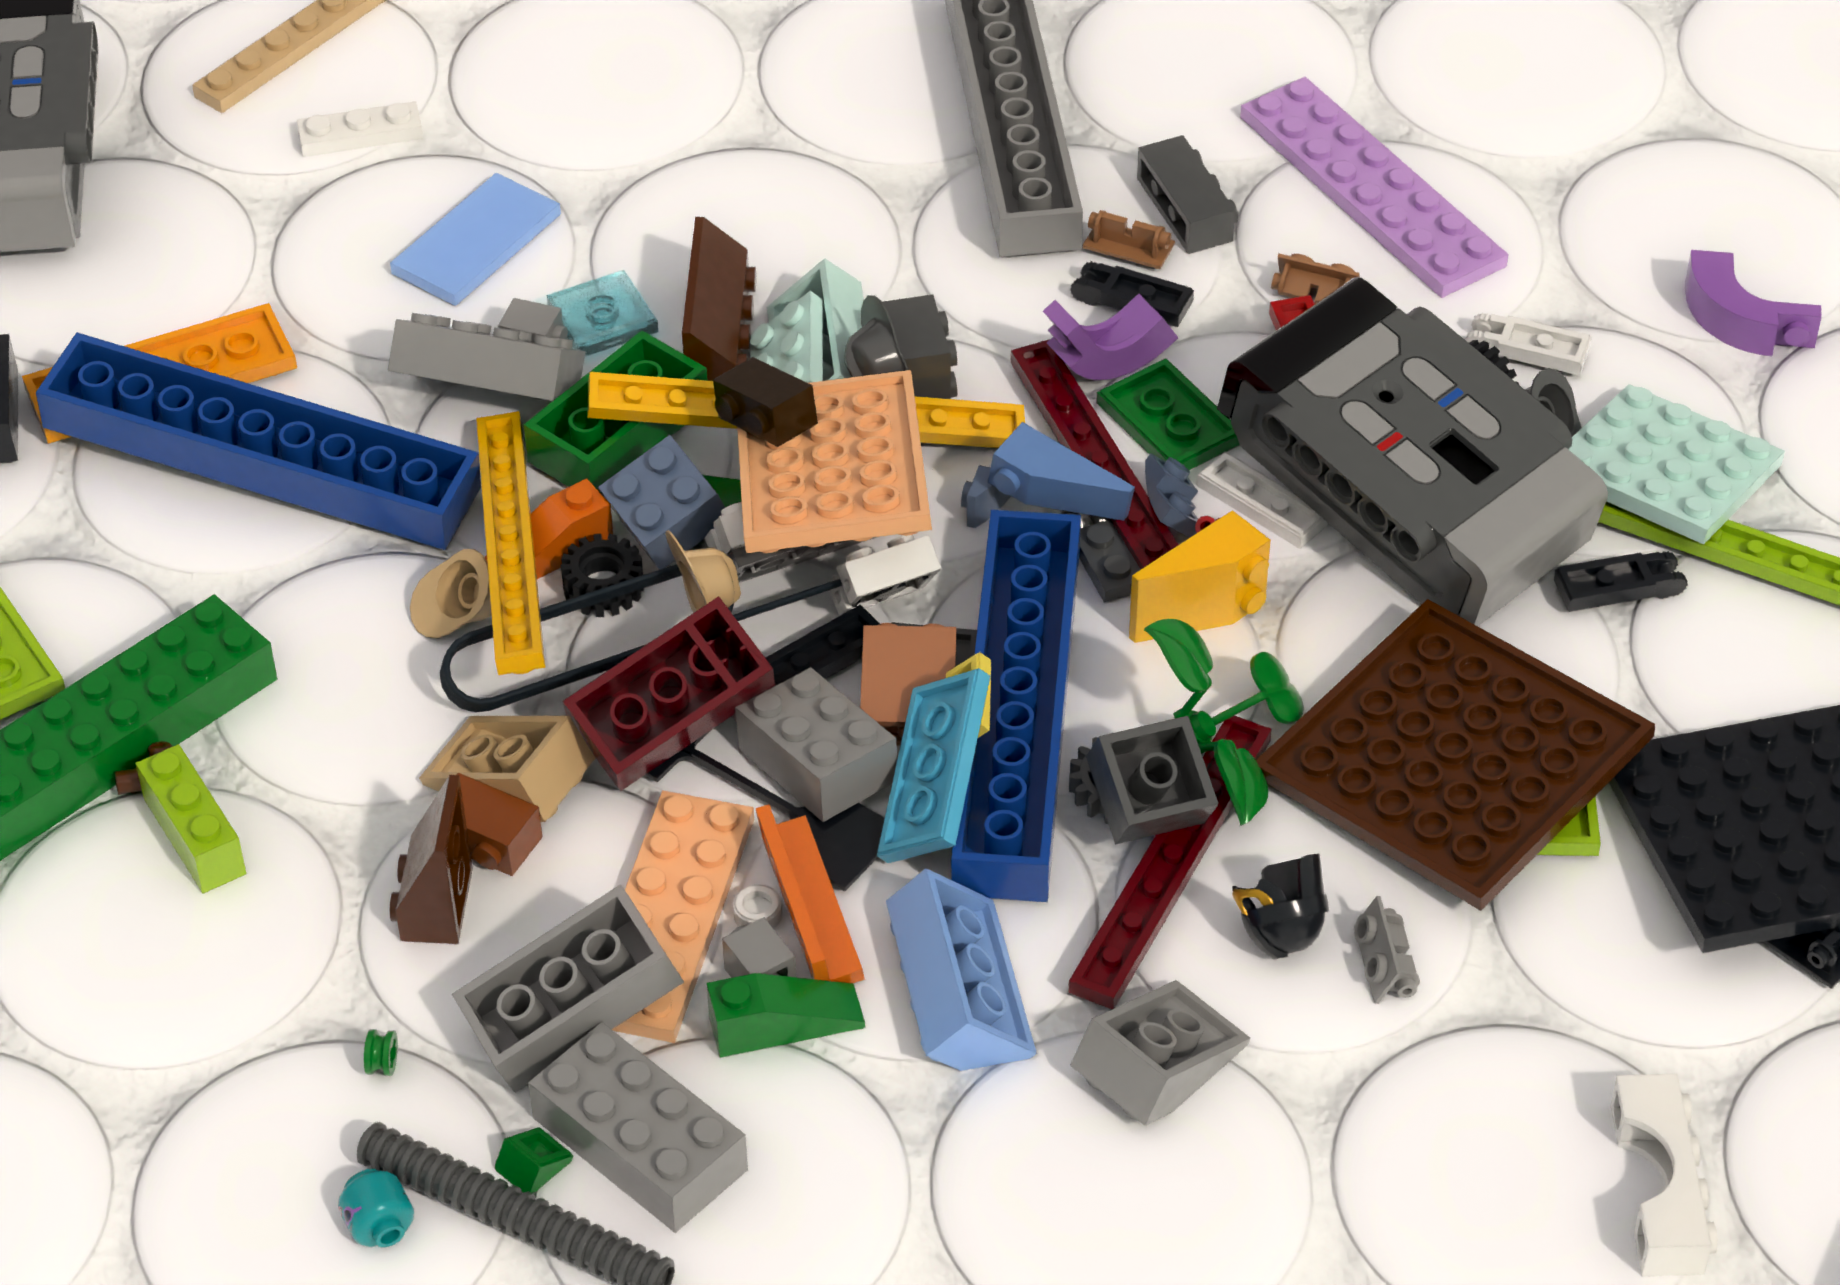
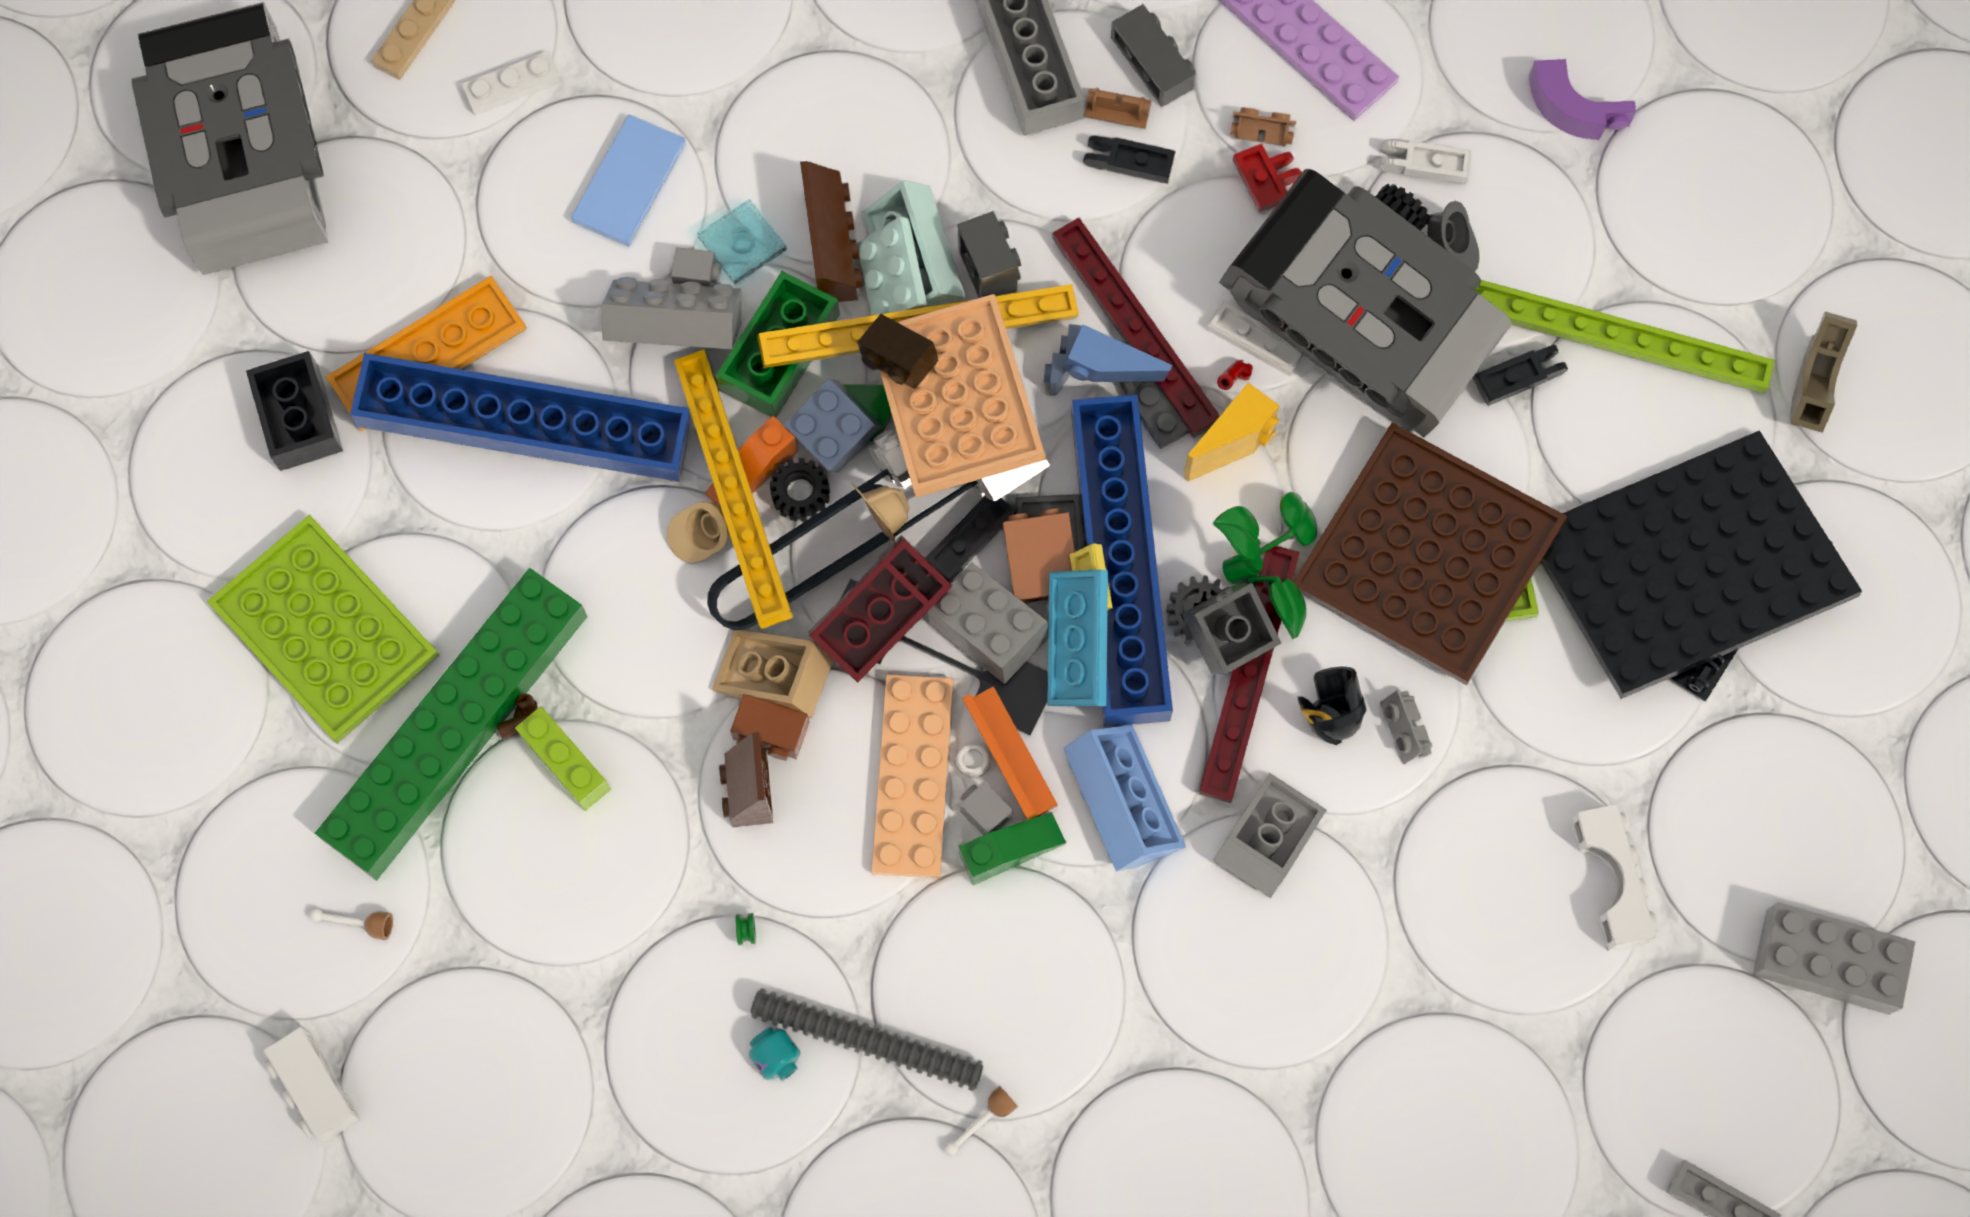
camera: 10 degrees left, 25 degrees up
(531, 1159) = (867, 992): green slope -> none
(565, 984) = (865, 868): light grey brick -> none
(638, 1126) = (934, 960): light grey brick -> none
(875, 344) = (960, 273): dark grey piece -> none
(1111, 347) = (1125, 215): medium lavender arch -> none
(1168, 415) = (1176, 271): green tile -> none
(1171, 493) = (1191, 348): sand blue slope -> none
(1673, 462) = (1542, 263): light aqua plate -> none

